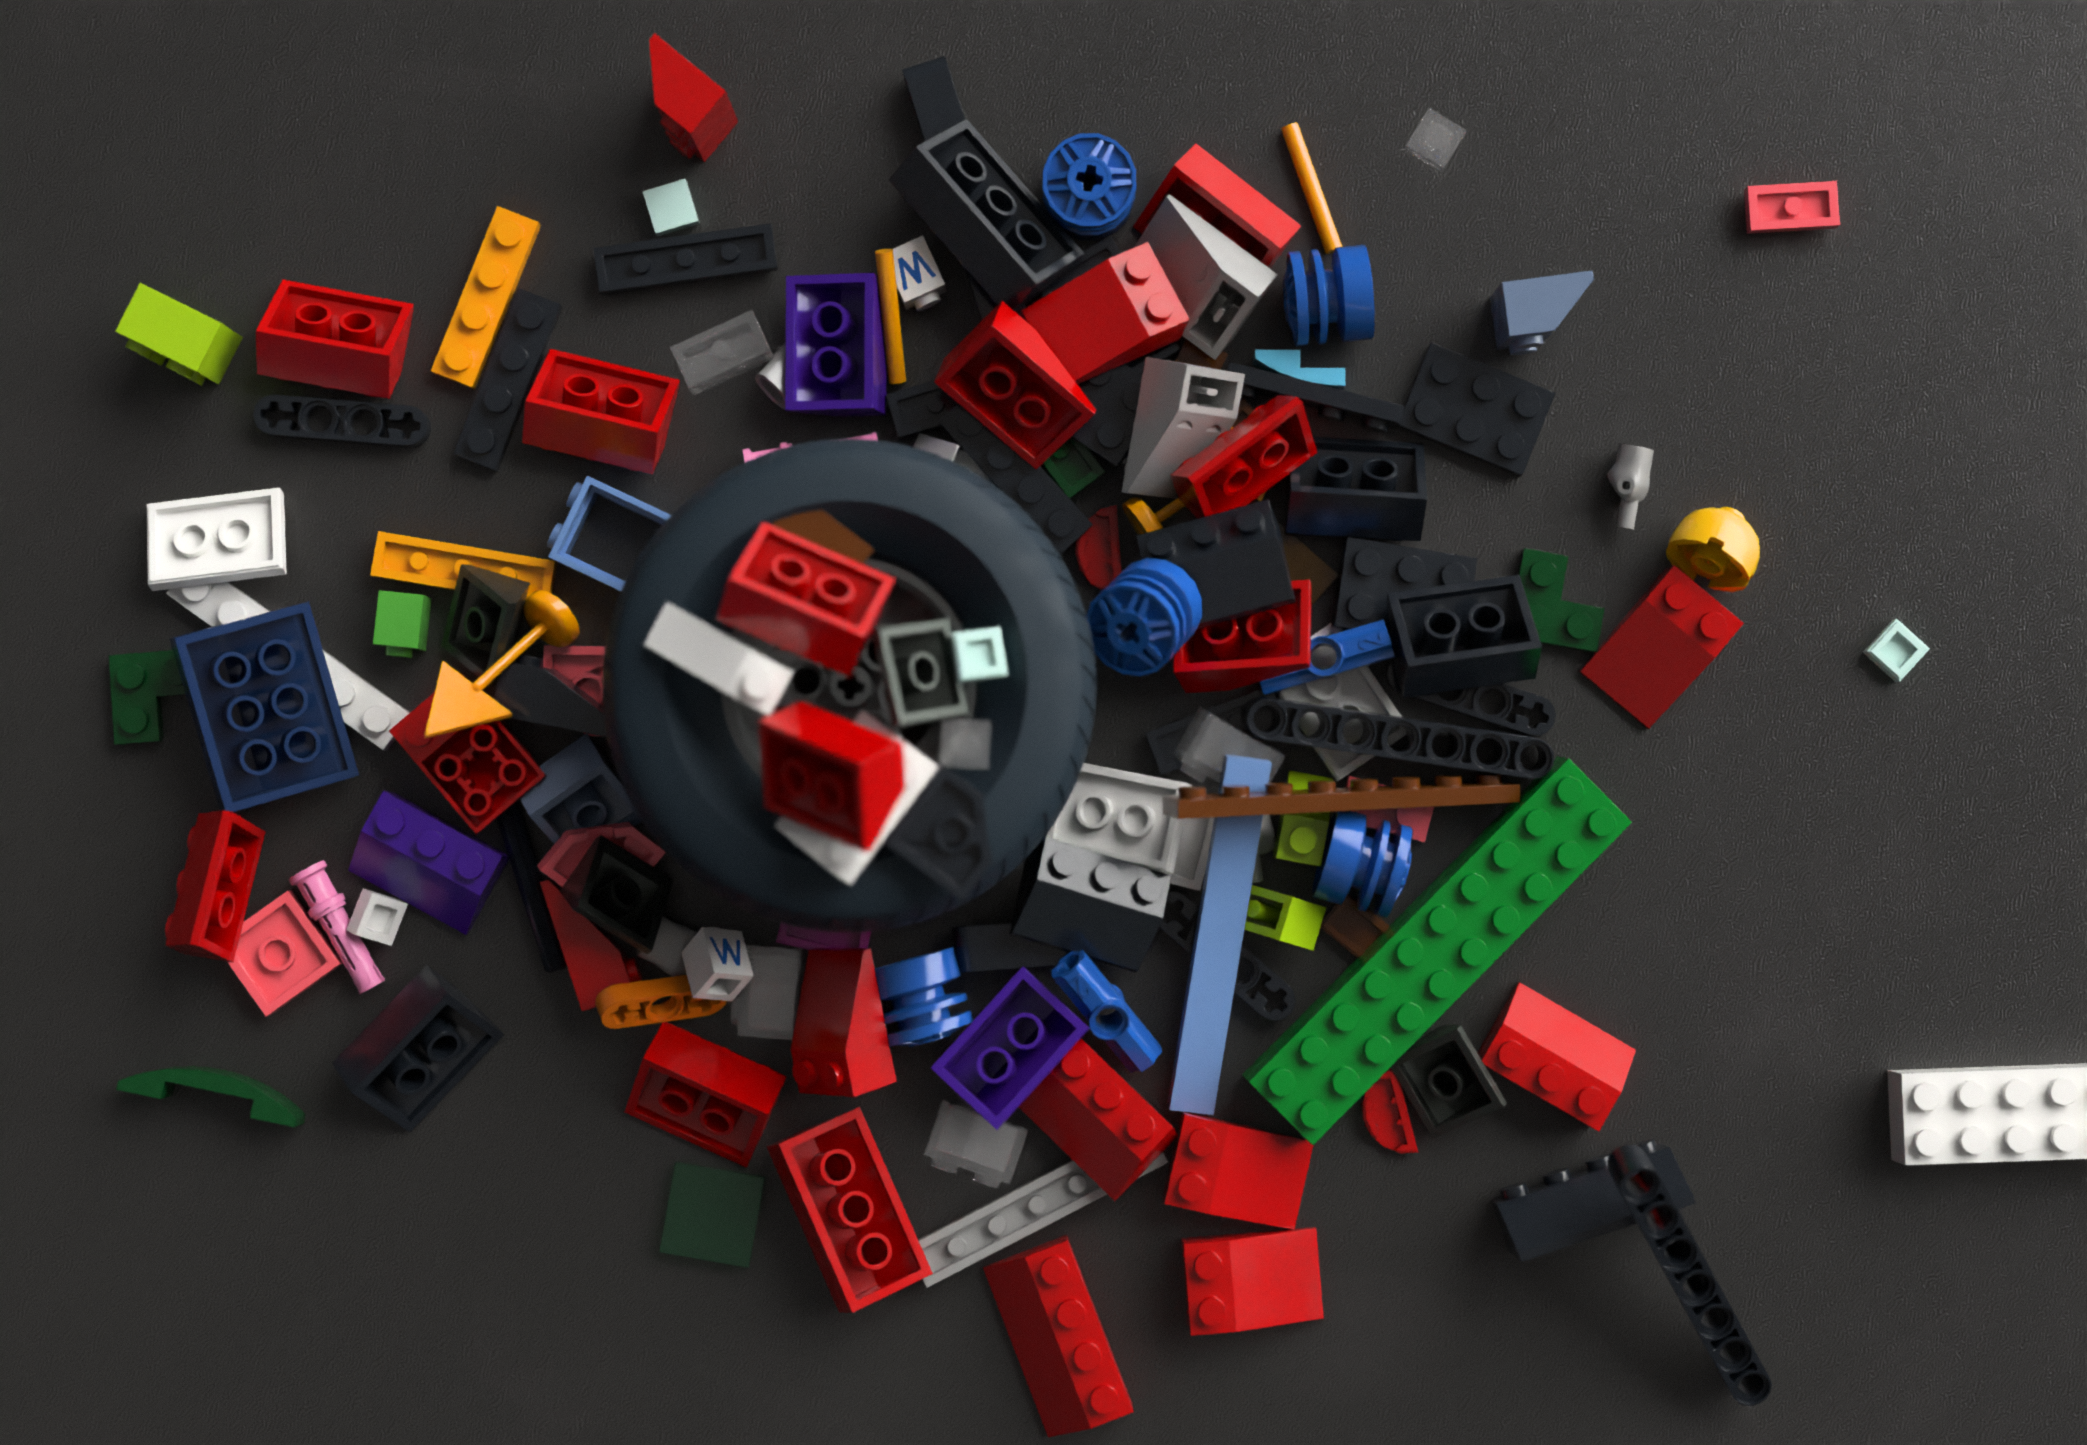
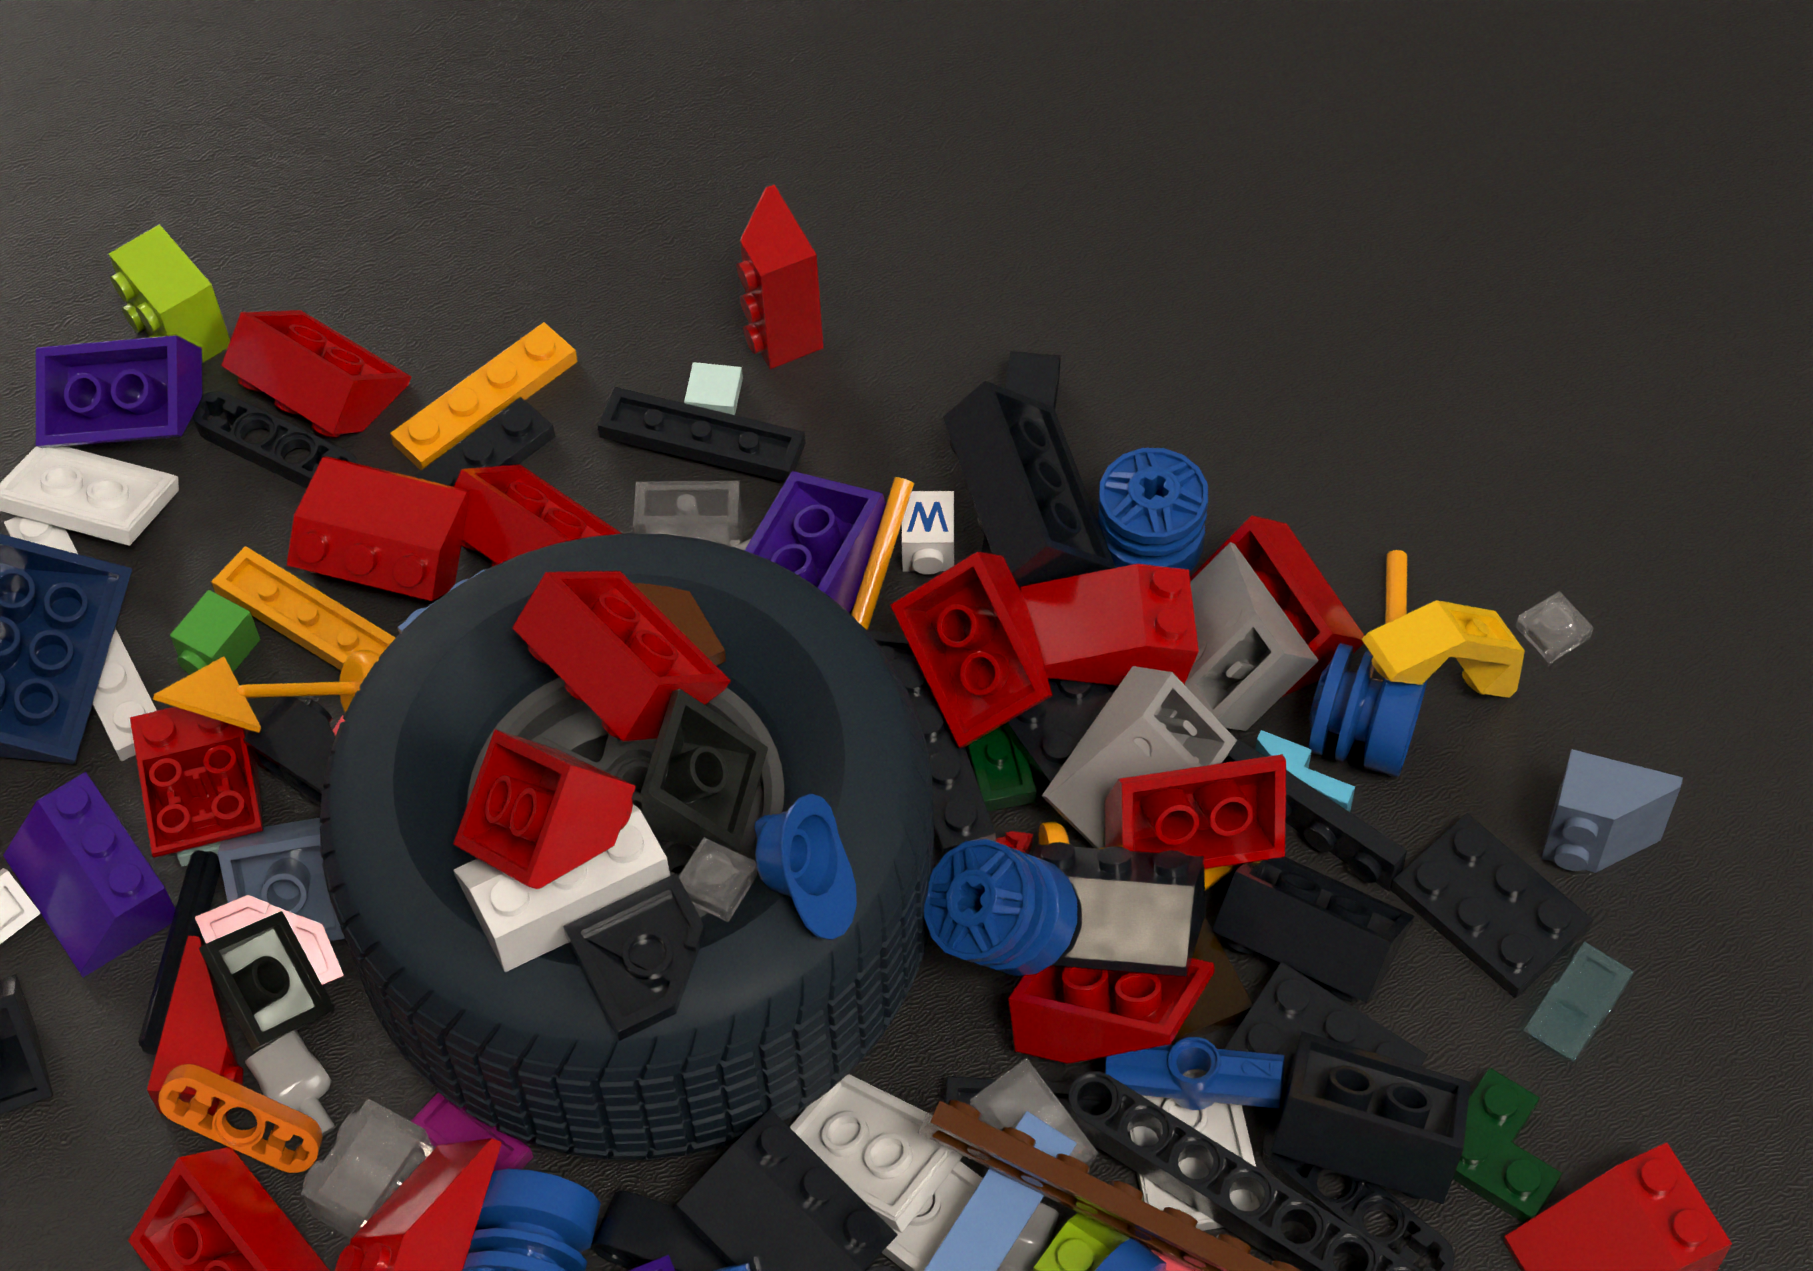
camera: 30 degrees right, 30 degrees down
(190, 443) = (116, 390): none -> dark purple slope
(483, 476) = (379, 529): none -> red slope
(483, 617) = (303, 652): pearl dark grey slope -> none
(717, 964) = (324, 1101): white brick -> none
(719, 658) = (498, 676): white slope -> none
(978, 655) = (778, 786): light aqua tile -> none
(1033, 715) = (806, 860): none -> blue piece
(1373, 233) = (1425, 638): none -> yellow slope
(1568, 464) = (1579, 1001): none -> clear light blue slope
(1631, 481) = (1650, 1043): light grey piece -> none
(1717, 547) = (1727, 1151): yellow cylinder -> none

